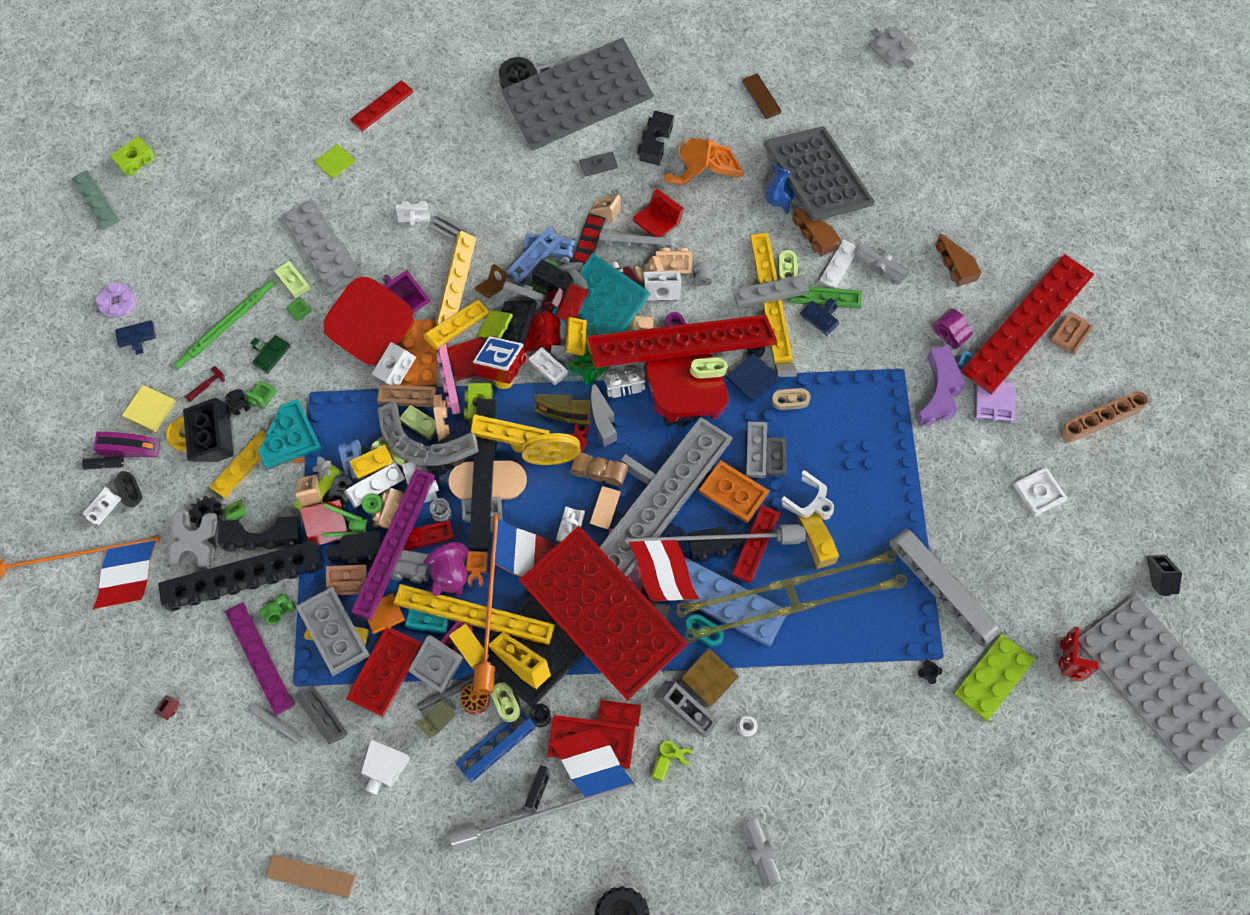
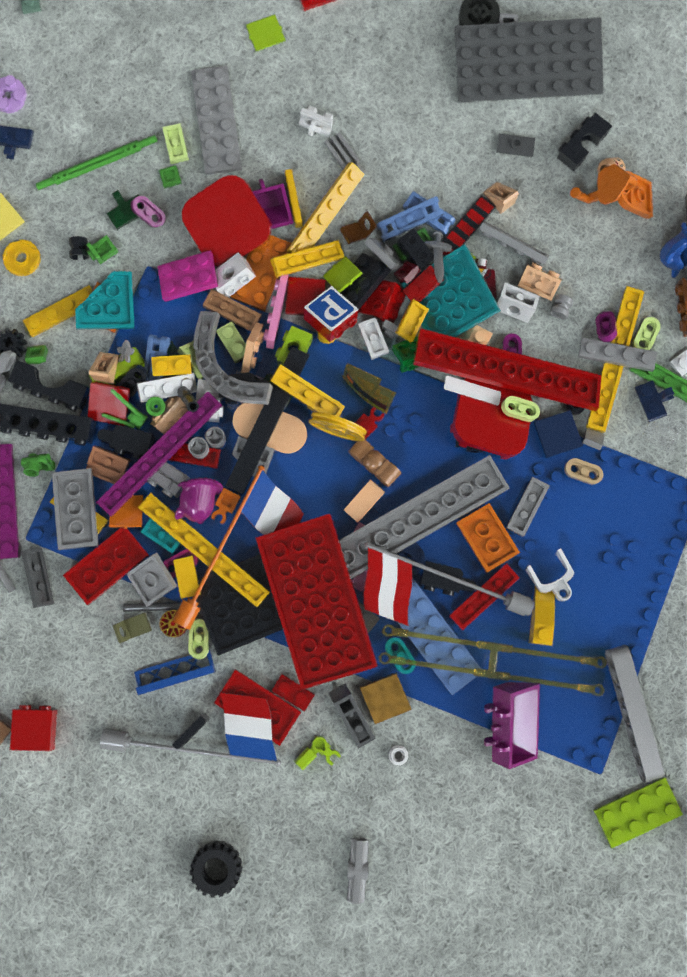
camera: 20 degrees right, 15 degrees up
(204, 385) = (57, 216): dark red piece -> none
(208, 431) = (40, 267): black slope -> none
(290, 344) = (147, 211): none -> magenta plate
(352, 382) = (187, 276): none -> dark pink plate
(377, 862) = (33, 728): none -> red piece
(382, 766) = (71, 647): white torso -> none
(400, 483) = (188, 399): none -> black piece
(422, 282) = (293, 198): none -> yellow tile
(427, 520) = (196, 444): none -> light grey wheel
(522, 660) = (225, 611): yellow slope -> none
(539, 711) = (223, 664): black wheel -> none
(570, 520) = (325, 503): white hips -> none
(602, 417) = (400, 412): light grey slope -> none
(615, 380) = (433, 382): white hinge -> none
(638, 470) = (409, 478): light grey tile -> none
(652, 265) = (516, 279): light nougat bracket -> none
(658, 369) = (472, 390): none -> white sticker
(660, 215) = (547, 227): red bracket -> none
(749, 273) = (606, 326): none -> magenta plate
(776, 457) = (542, 522): dark grey plate -> none
(840, 643) = (514, 723): none -> magenta piece
(936, 670) = (584, 775): black plate -> none

